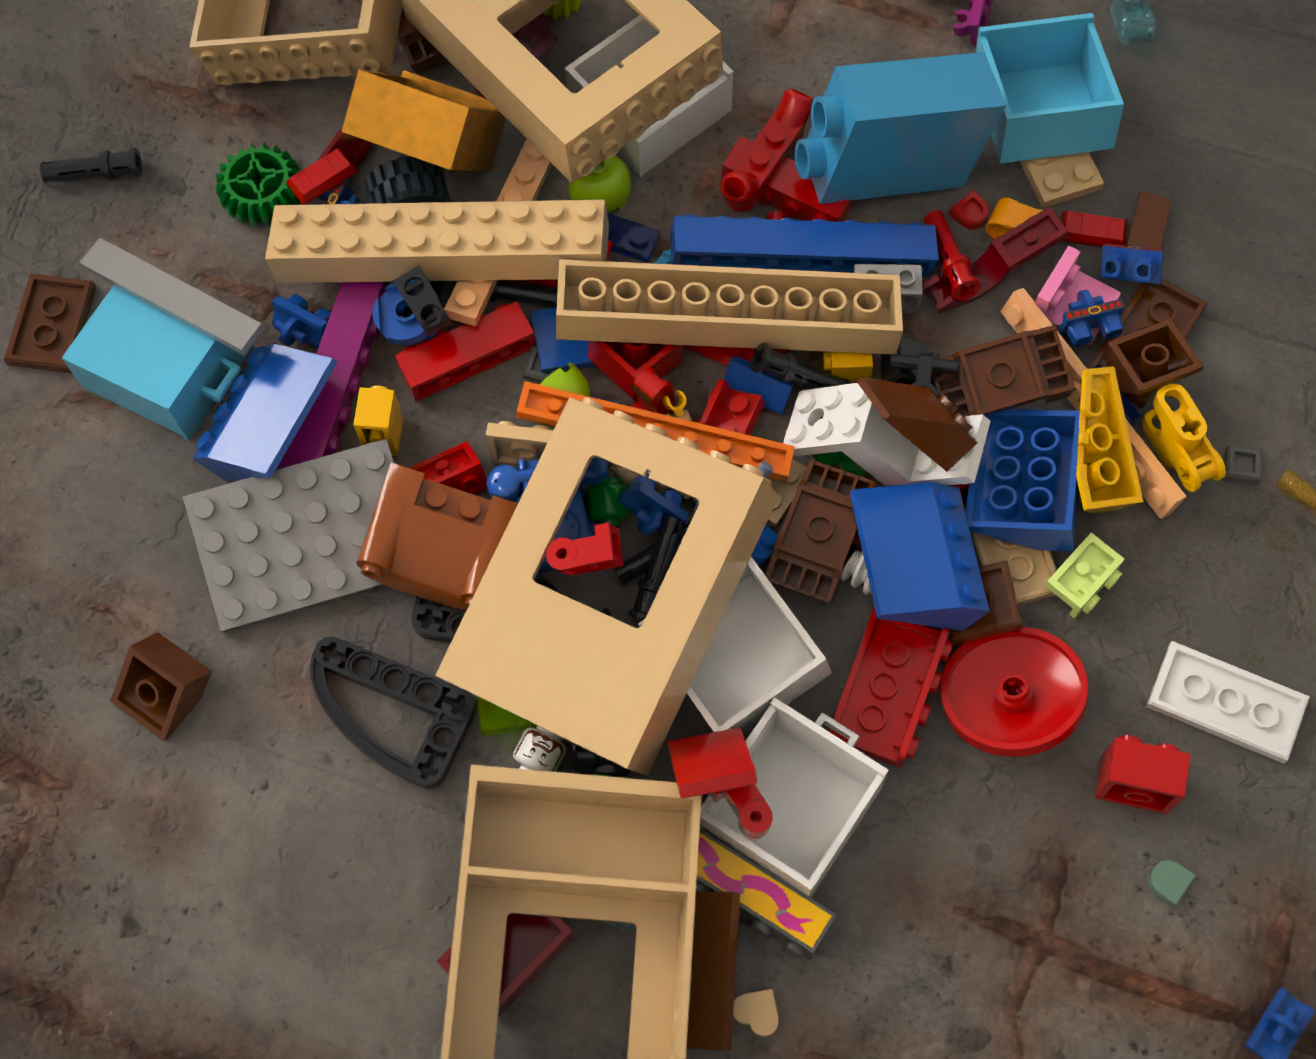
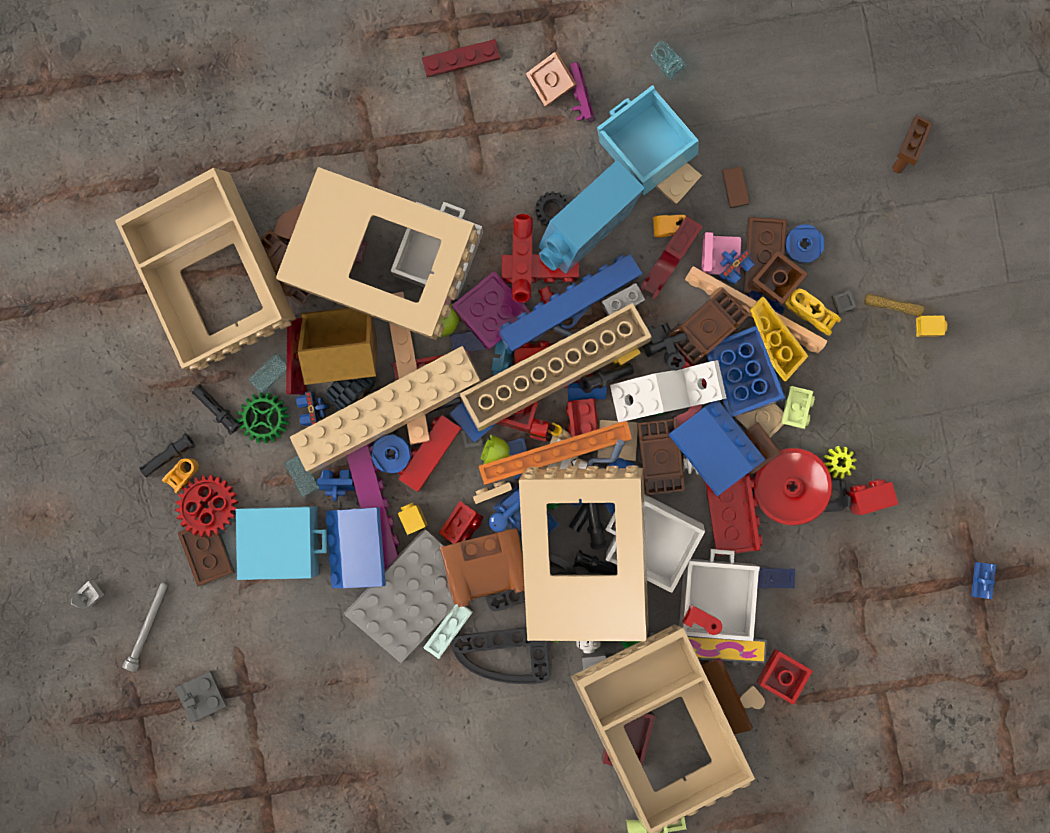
camera: 35 degrees left, 20 degrees up
(71, 244) = (193, 496): none -> red gear
(94, 197) = (179, 476): none -> light orange piece
(159, 684) = (390, 705): reddish brown slope -> none
(172, 296) = (271, 518): light grey tile -> none
(204, 154) = (222, 415): none -> black pin
(258, 291) = (303, 480): none -> clear light blue tile
(306, 136) = (268, 373): none -> clear light blue tile
(321, 176) = (297, 400): red tile -> none
(328, 620) = (447, 630): none -> light aqua tile
(422, 300) = (401, 449): black leg -> none
(587, 553) = (573, 556): red leg -> none
(672, 189) = (488, 308): none -> magenta plate
(711, 763) = (681, 614): red tile -> none
(834, 996) = (784, 676): none -> red brick
(906, 827) = (776, 578): none -> clear blue plate
(922, 419) = (686, 384): reddish brown slope -> none
(955, 265) = (651, 269): red pin -> none
(971, 211) = (641, 228): red tile -> none
(1084, 769) = (843, 501): none -> black piece
(1094, 229) = (708, 205): red tile -> none
(1123, 688) = (846, 463): none -> neon yellow gear
(1132, 263) = (740, 219): blue hips -> none
(1169, 881) = (904, 536): sand green tile -> none
(1228, 702) = (891, 432): white tile -> none
(1236, 345) = (812, 237): none -> blue plate

